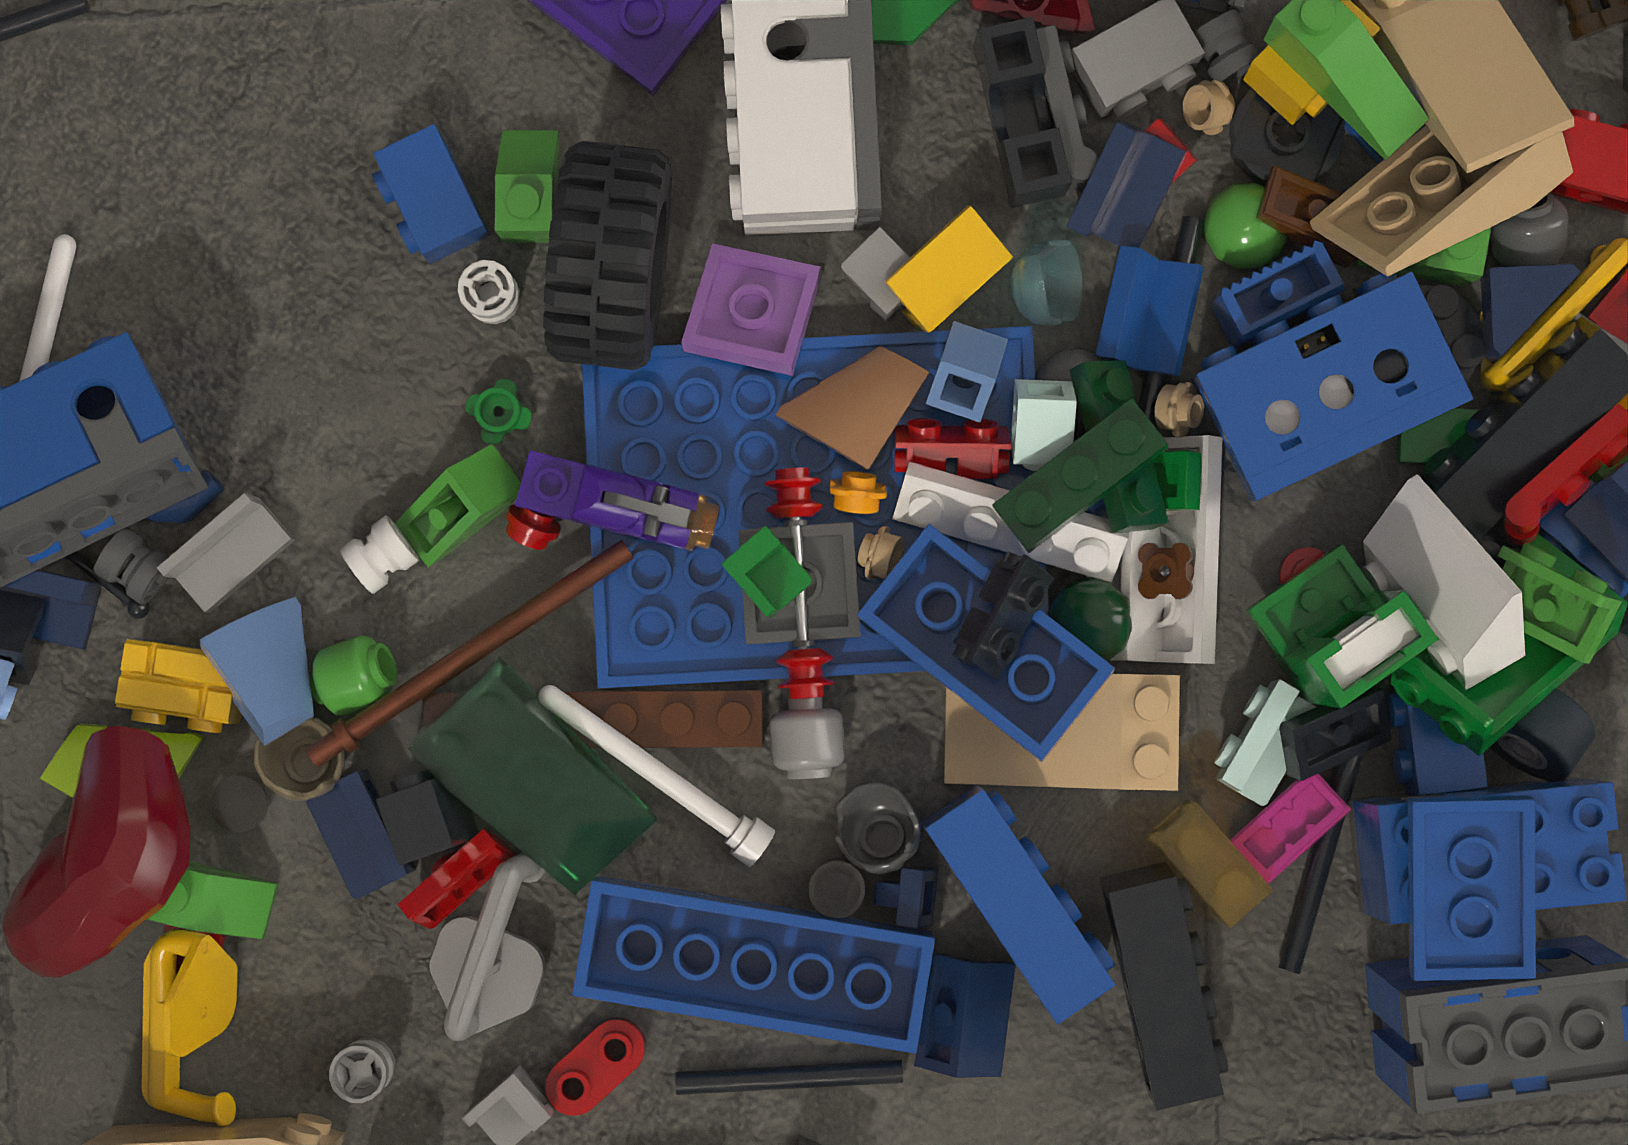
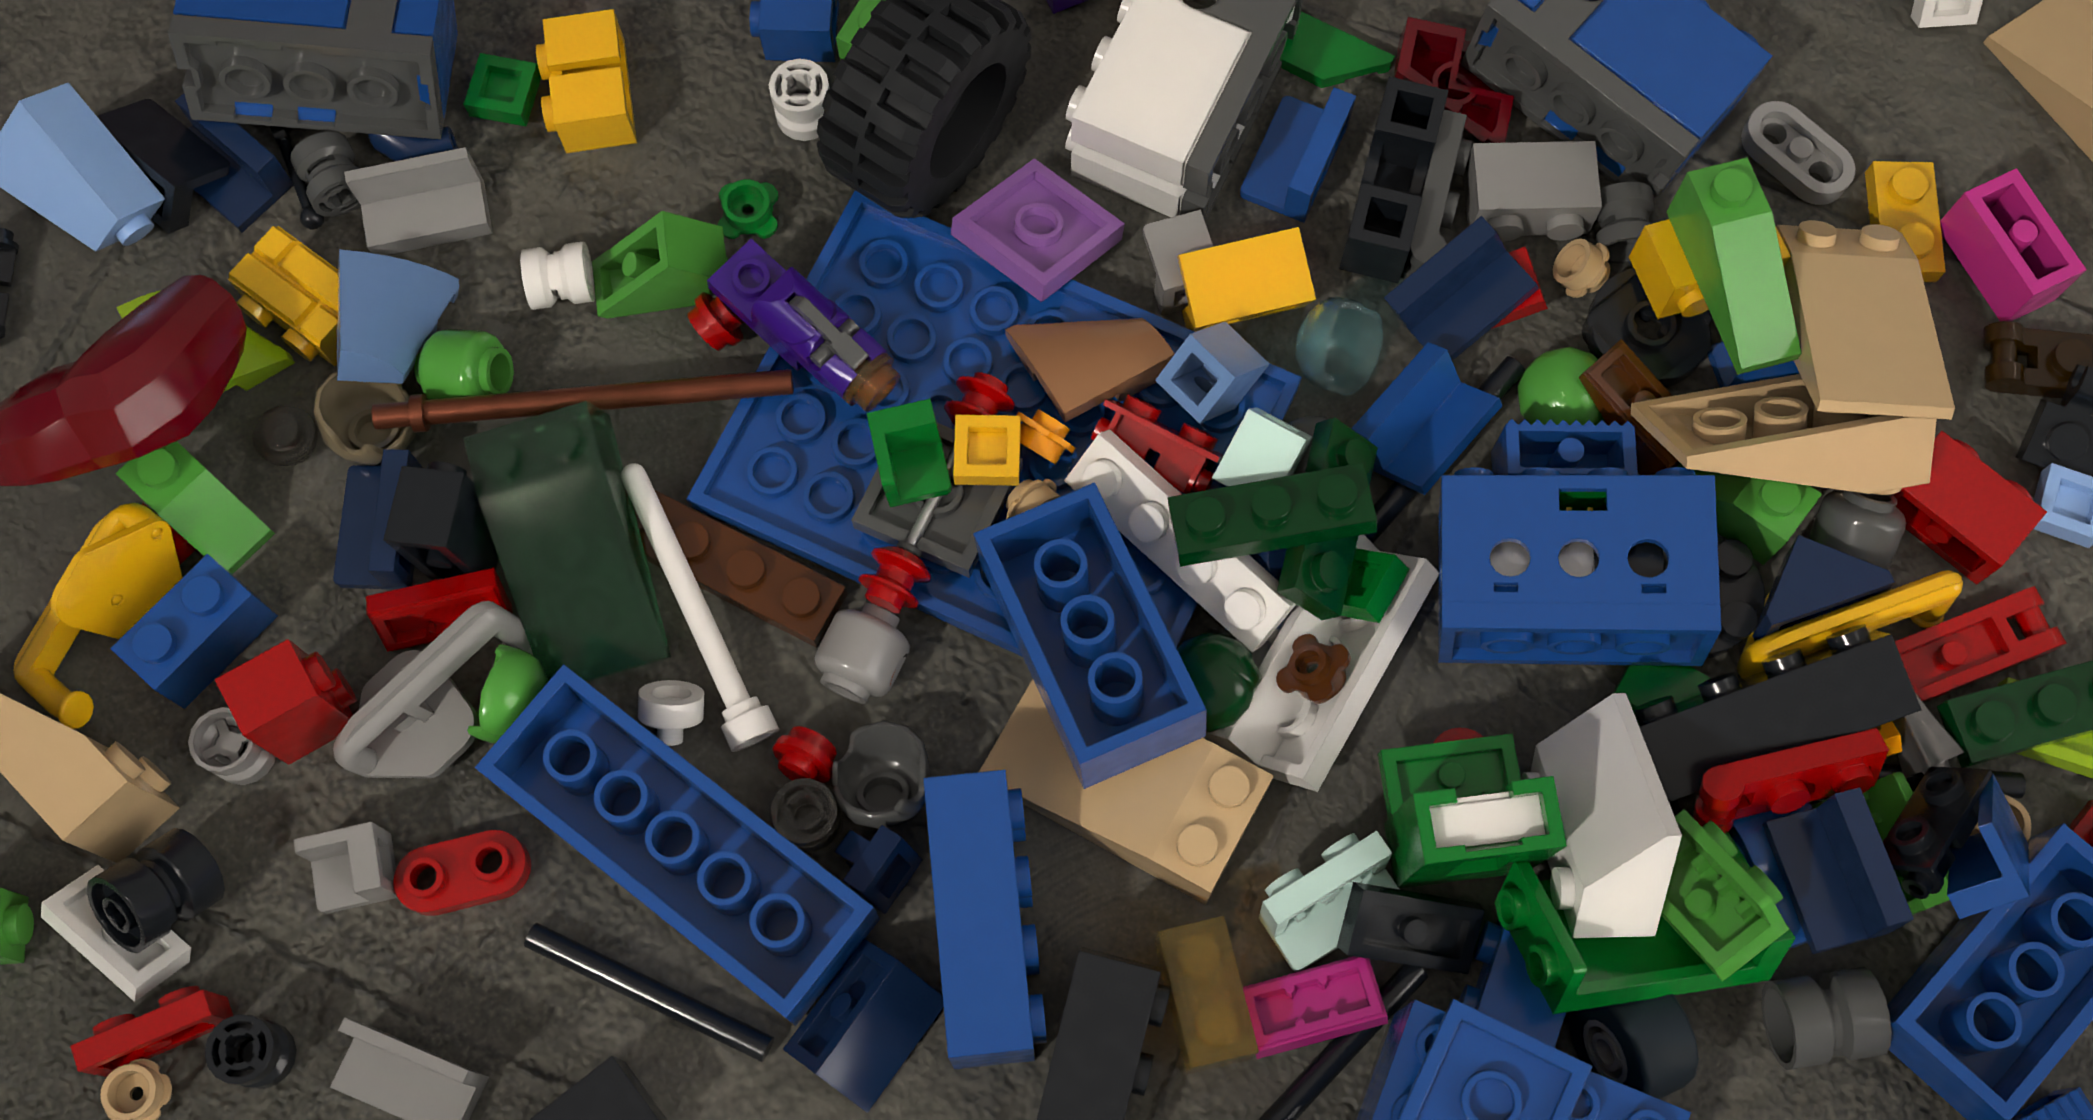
camera: 30 degrees right, 15 degrees down
(230, 413) = (502, 89): none -> green plate
(275, 1000) = (194, 632): none -> blue brick
(299, 369) = (587, 81): none -> yellow piece
(391, 1018) = (288, 701): none -> red brick
(554, 919) = (507, 692): none -> bright green hair
(682, 858) = (670, 708): none -> white tile
(807, 841) = (805, 755): none -> red plate
(826, 535) = (987, 450): none -> yellow plate
(925, 121) = (1297, 154): none -> blue panel
(1017, 592) = (1129, 595): black hinge -> none
(1179, 408) = (1409, 527): tan plate -> none

